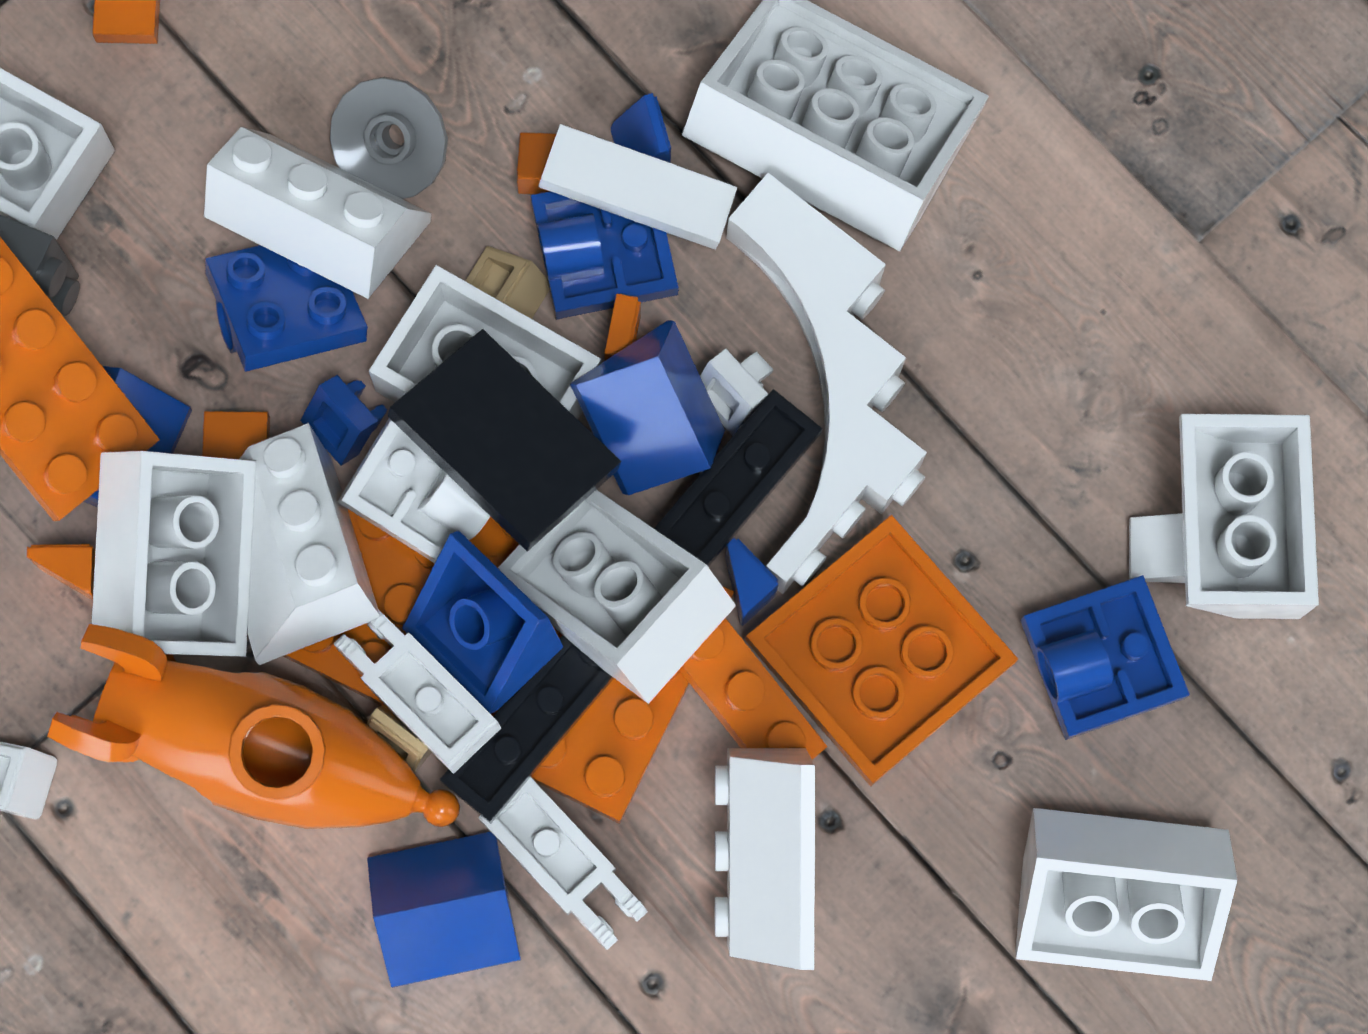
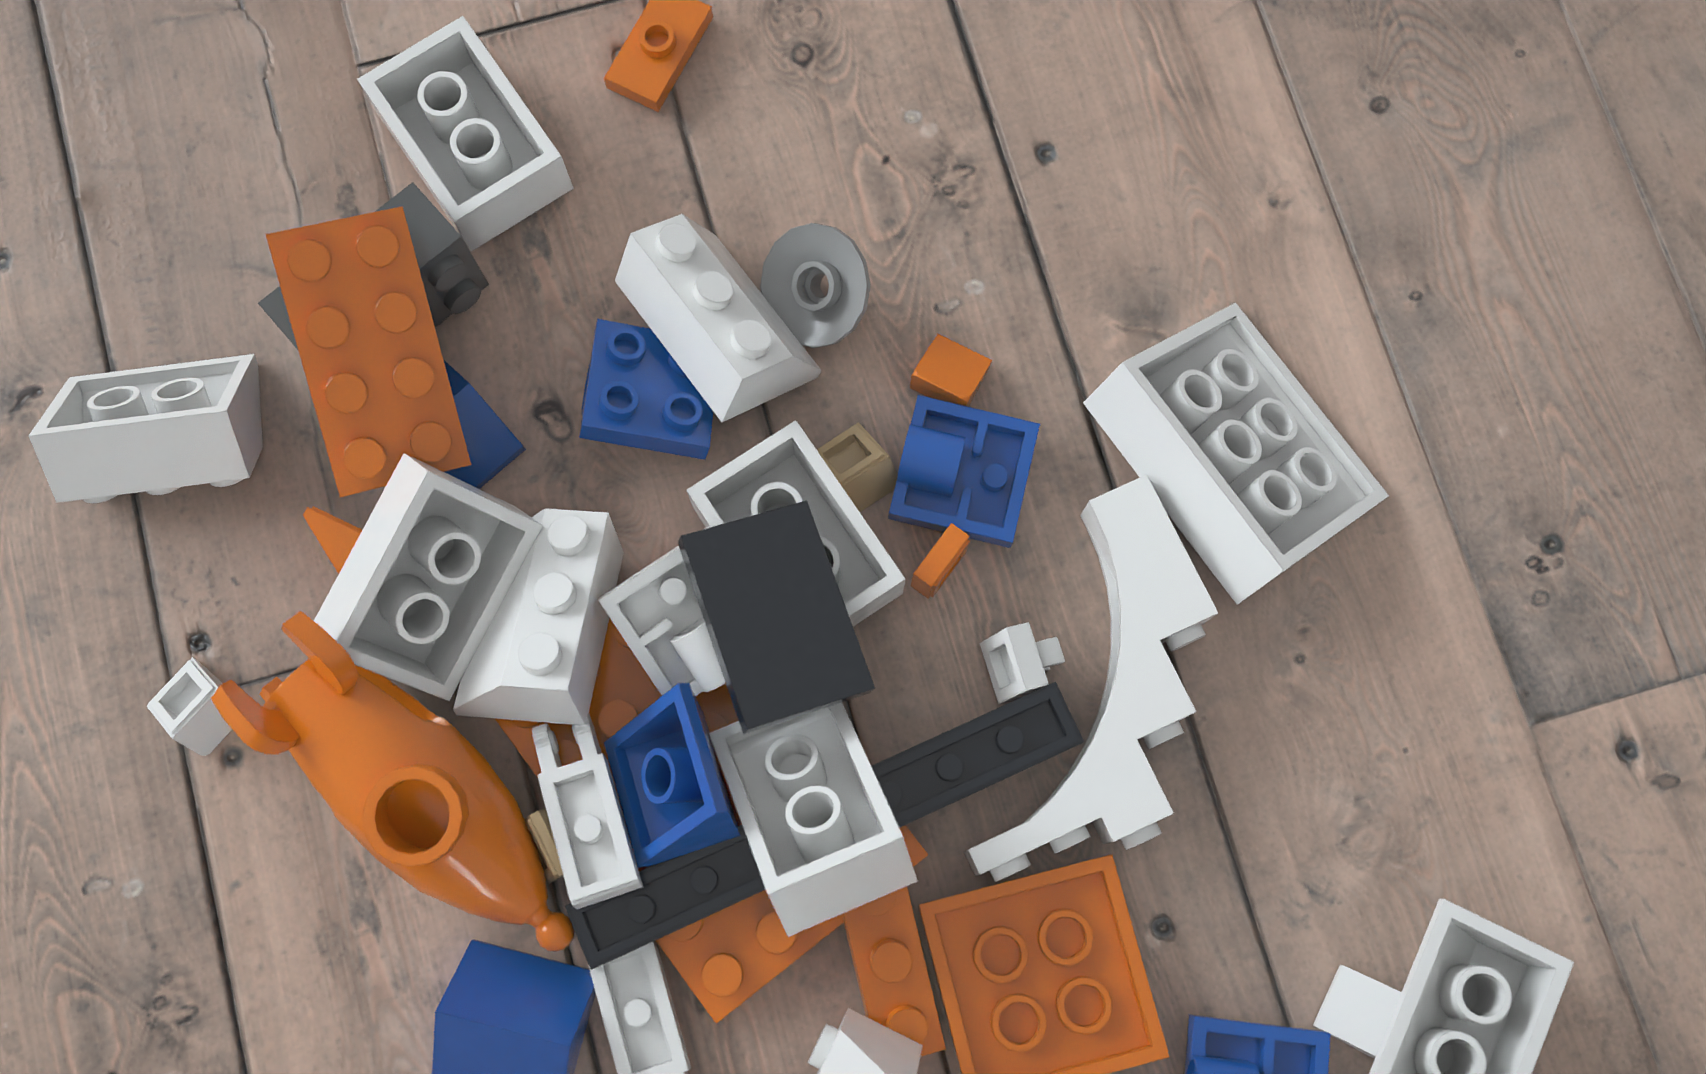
camera: 30 degrees right, 0 degrees up
(233, 432) = (546, 487): orange tile -> none
(341, 418) = (647, 519): blue tile -> none
(637, 187) = (1019, 432): white tile -> none
(643, 129) = (1045, 389): blue slope -> none
(651, 411) = (931, 649): blue slope -> none
(750, 580) = (947, 852): blue slope -> none

